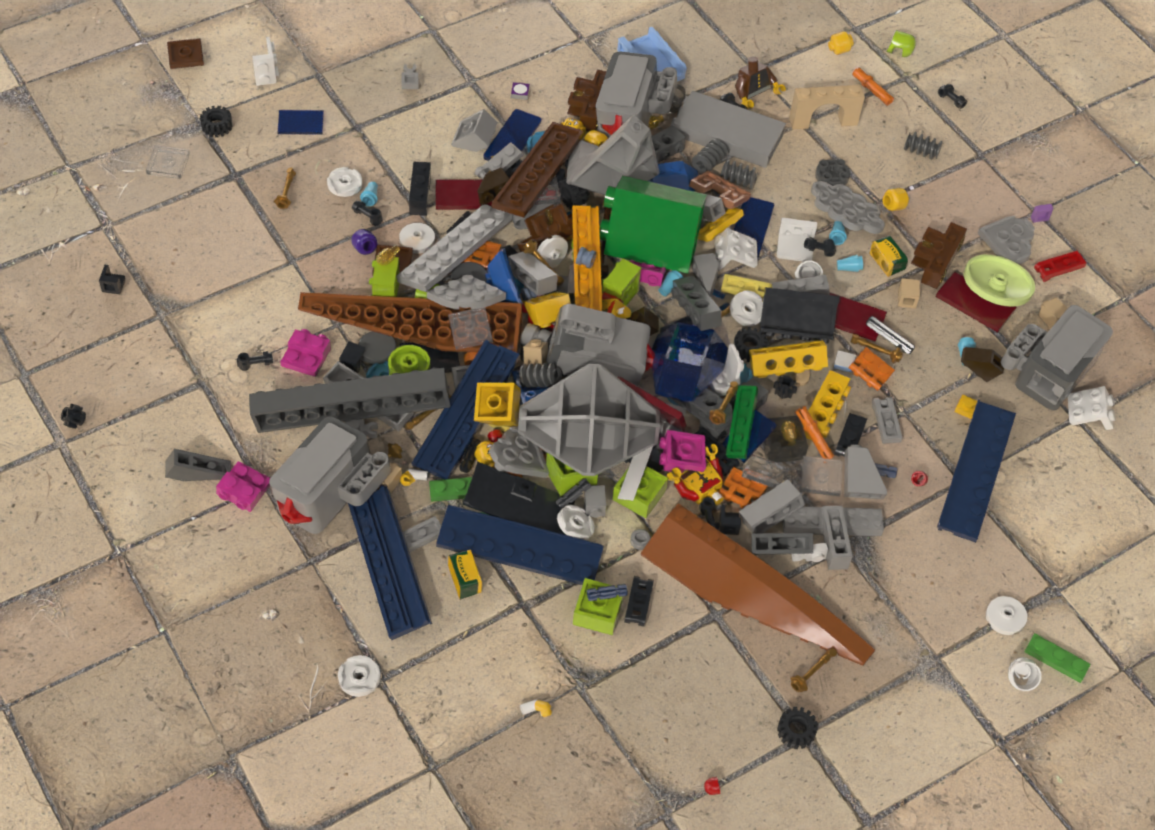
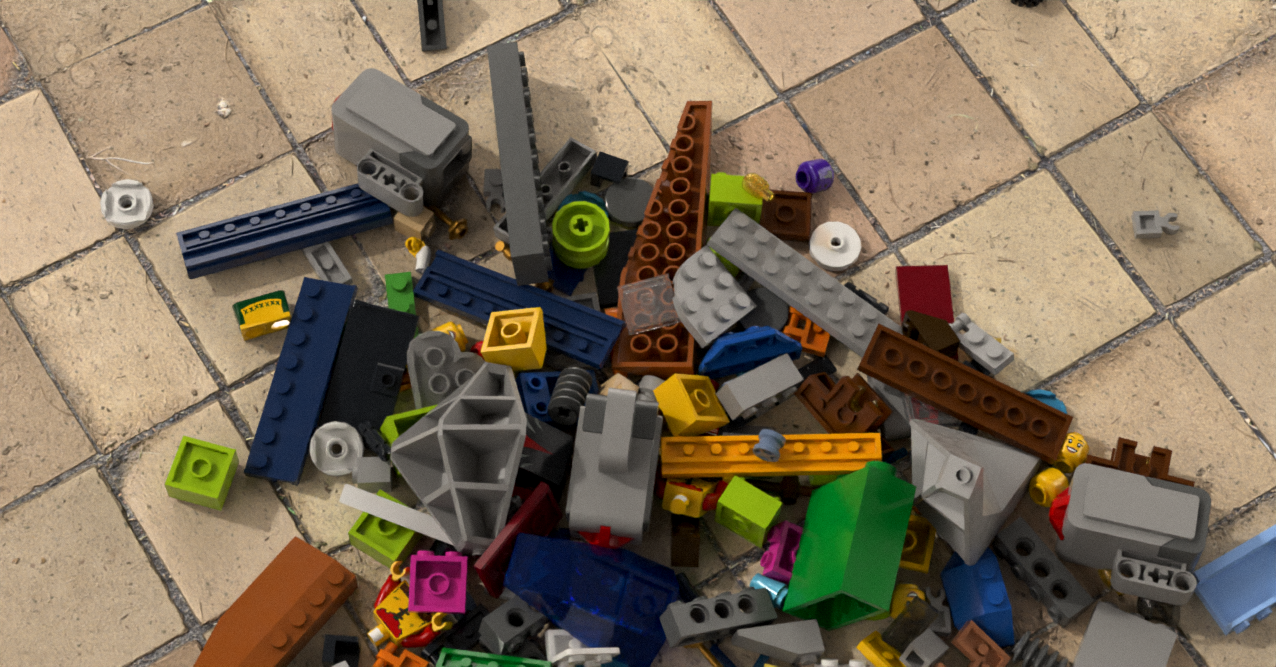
camera: 90 degrees right, 10 degrees up
(243, 486) = (404, 59): dark pink plate -> none
(245, 361) = (599, 51): black bar -> none
(264, 66) = (1138, 36): white bracket -> none
(282, 200) = (884, 73): pearl gold piece -> none
(301, 122) = (1045, 89): clear blue piece -> none
(306, 352) = (619, 119): dark pink plate -> none
(344, 182) = (931, 138): white plate -> none
(369, 195) = (909, 181): medium azure cone -> none
(374, 214) = (866, 187): black bar -> none
(419, 188) = (943, 241): black arch -> none
(469, 456) = (437, 317): black axle -> none
(475, 132) = (1048, 316): light grey slope -> none
(515, 130) = (1056, 372): clear blue piece -> none
(520, 91) = (1152, 380): tile -> none
(531, 248) = (799, 380): pearl gold piece -> none
(536, 705) = (70, 406): arm -> none
(553, 250) = (806, 415): white plate -> none
(607, 592) = (207, 473): dark blue axle -> none
(639, 539) = (317, 535): light grey tile -> none
(639, 601) = (217, 529): black plate -> none
(706, 508) = (363, 624): black bar -> none
(718, 416) = (480, 619): pearl gold piece -> none

